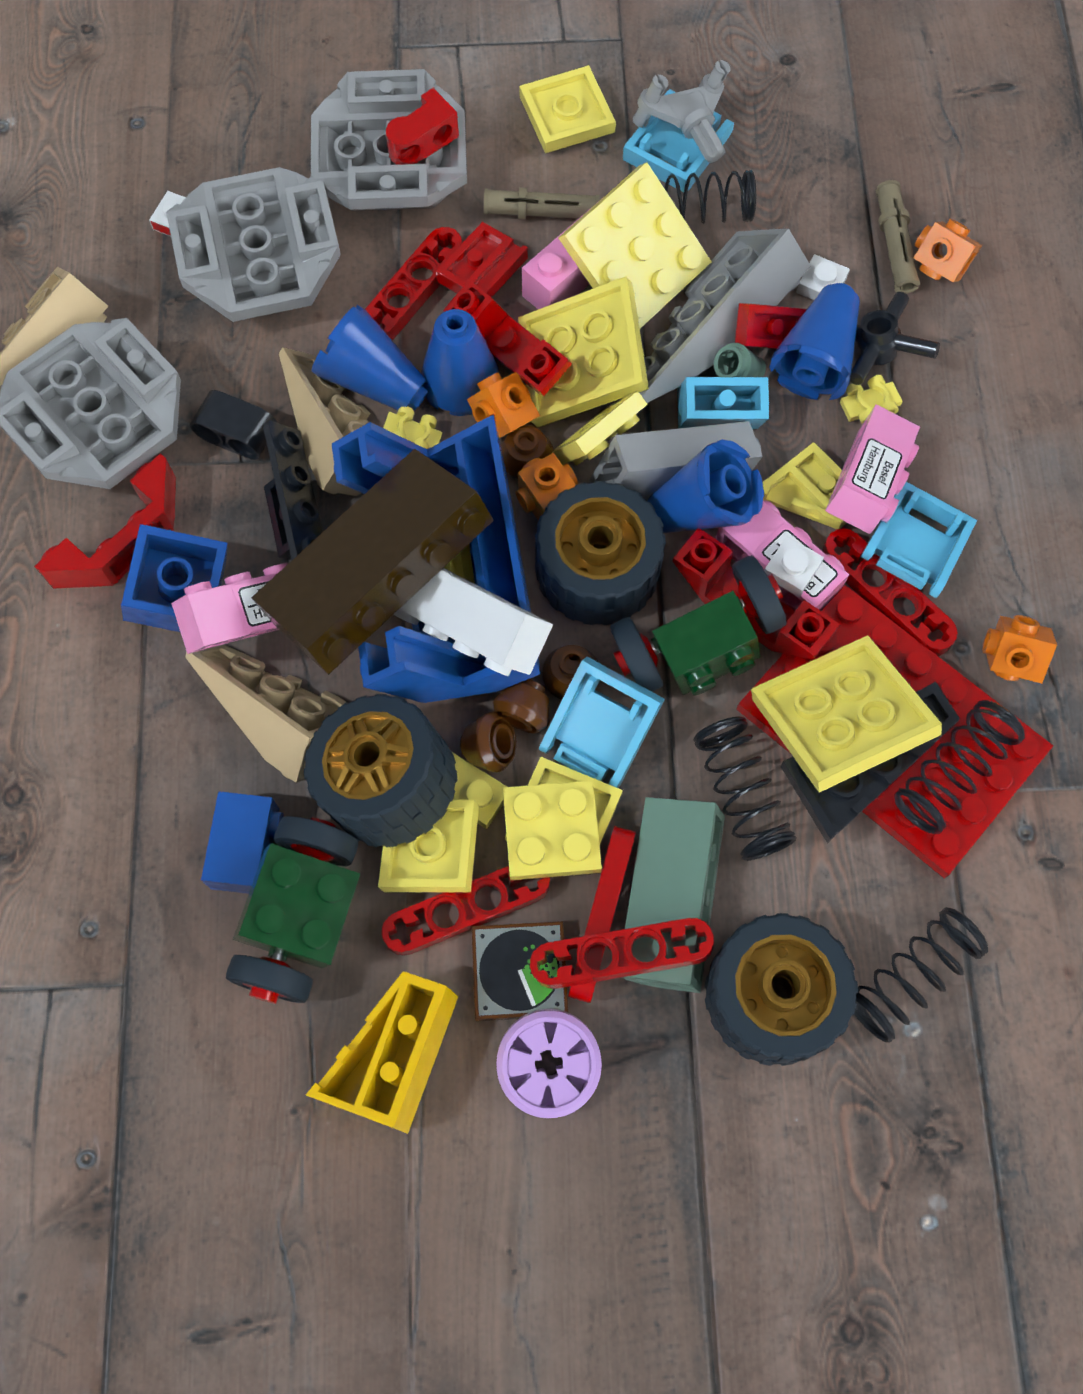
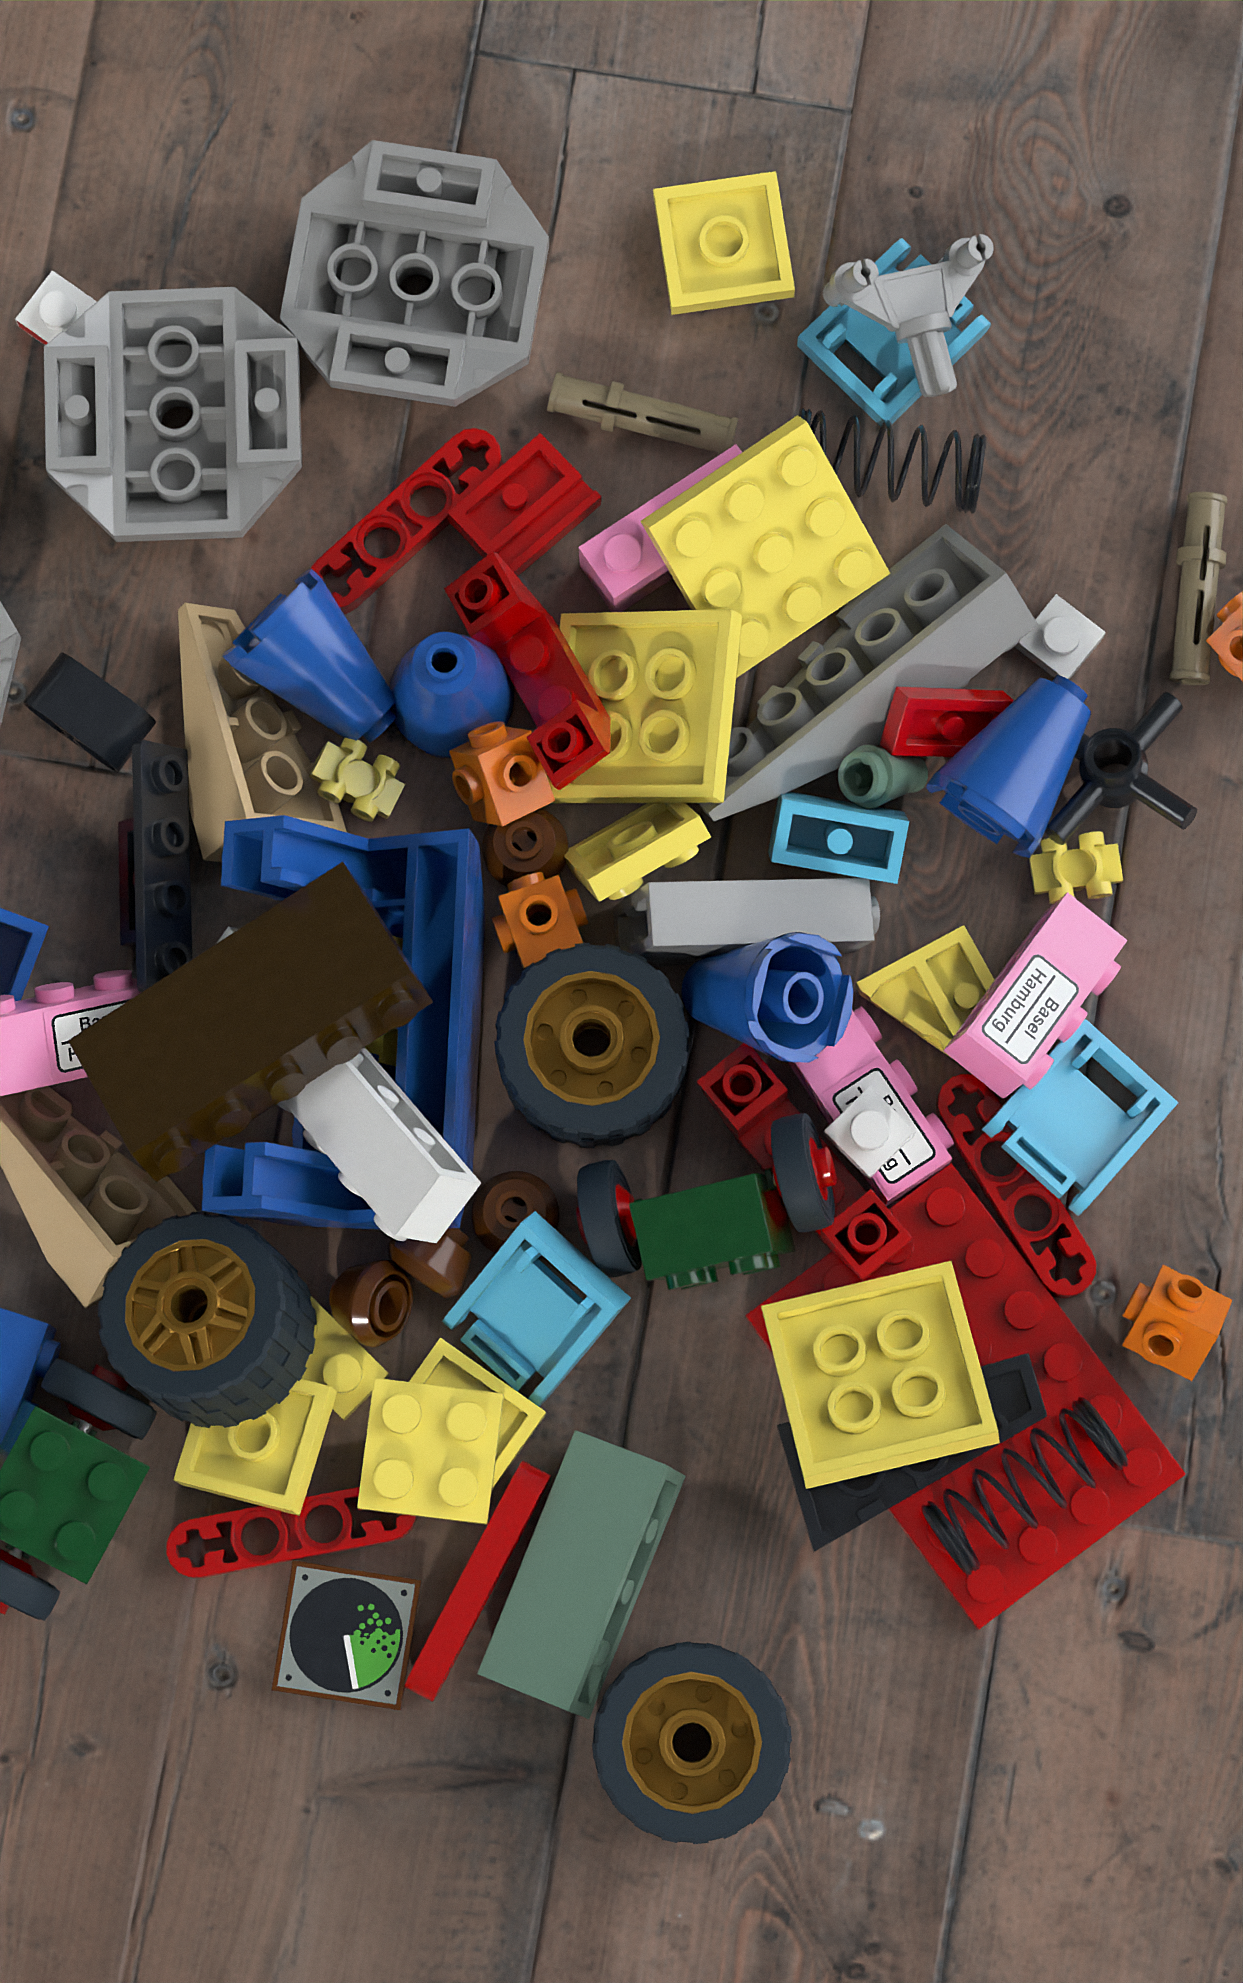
camera: 15 degrees right, 10 degrees up
(392, 1054) = (147, 1718): yellow wedge -> none
(422, 130) = (469, 281): red leg -> none
(531, 1087) = (329, 1798): lavender wheel -> none
(623, 961) = (485, 1642): red beam -> none
(764, 844) = (721, 1534): black piece -> none
(960, 939) = (982, 1745): black piece -> none

